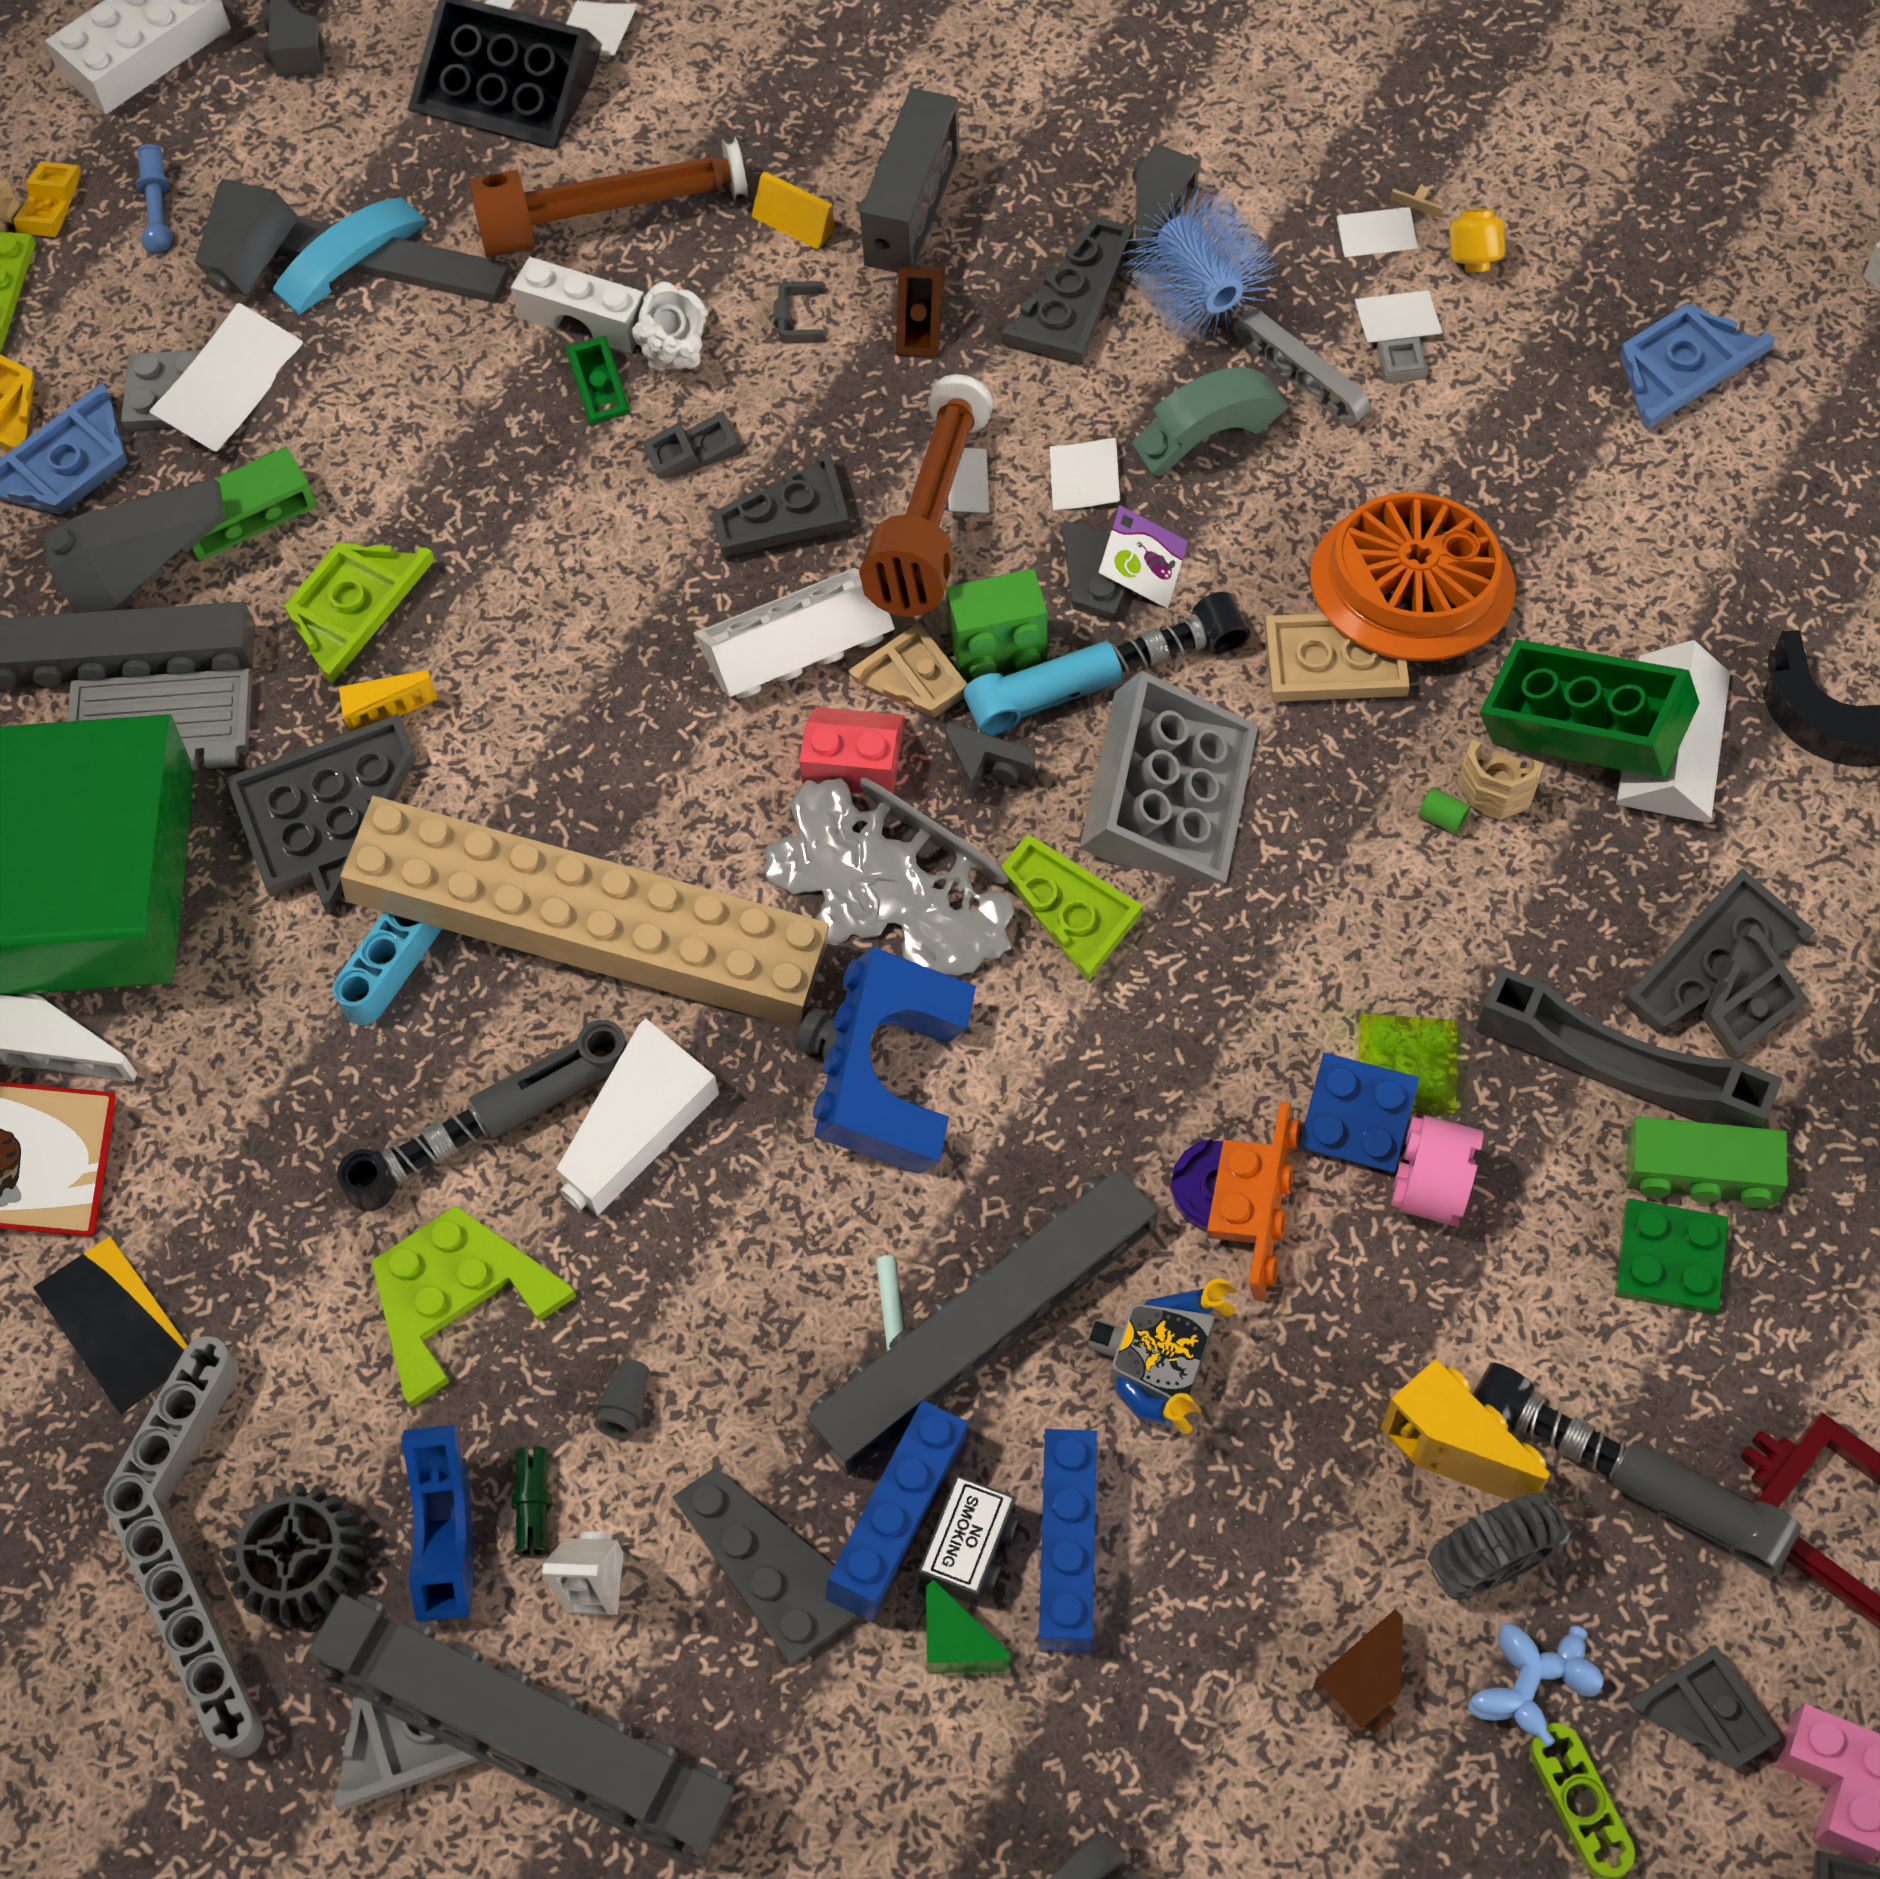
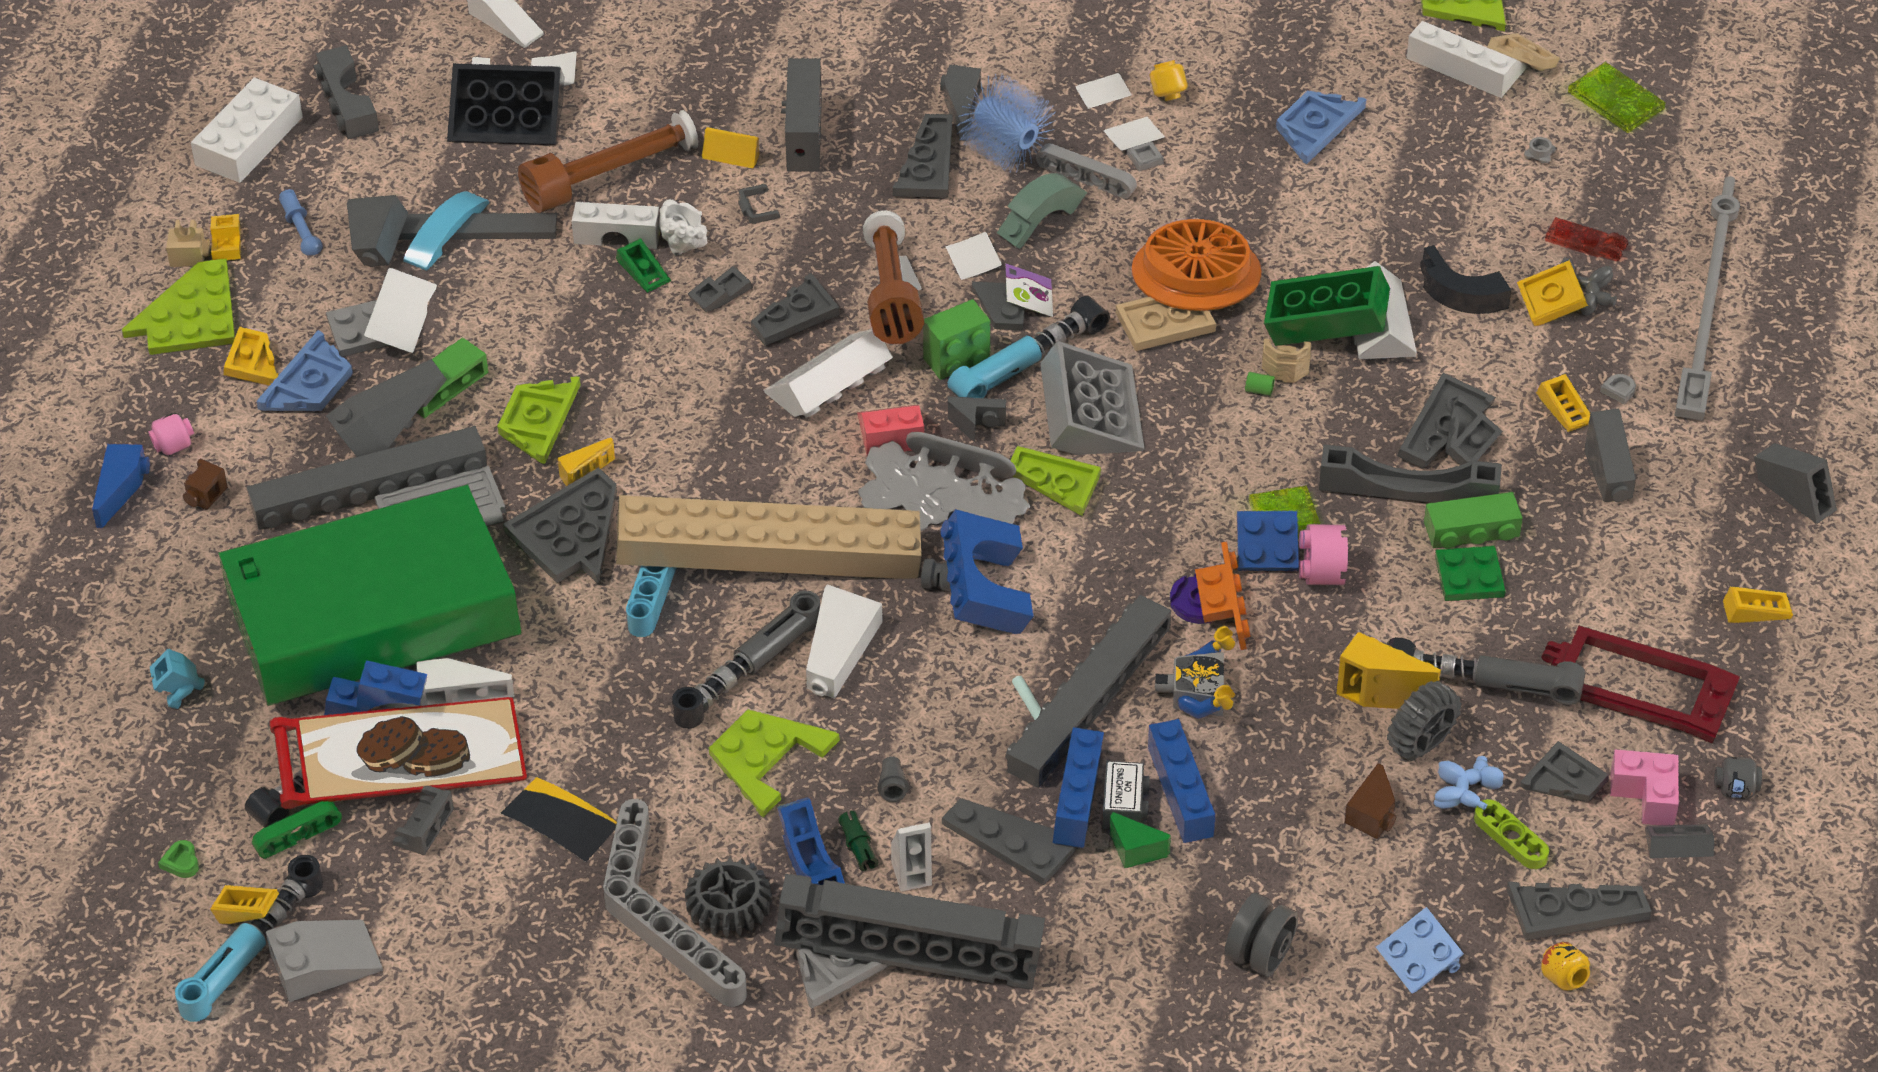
camera: 20 degrees left, 15 degrees down
(912, 673) = (911, 380): tan wing -> none
(919, 309) = (835, 185): reddish brown slope -> none
(1417, 201) = (1122, 69): tan piece -> none

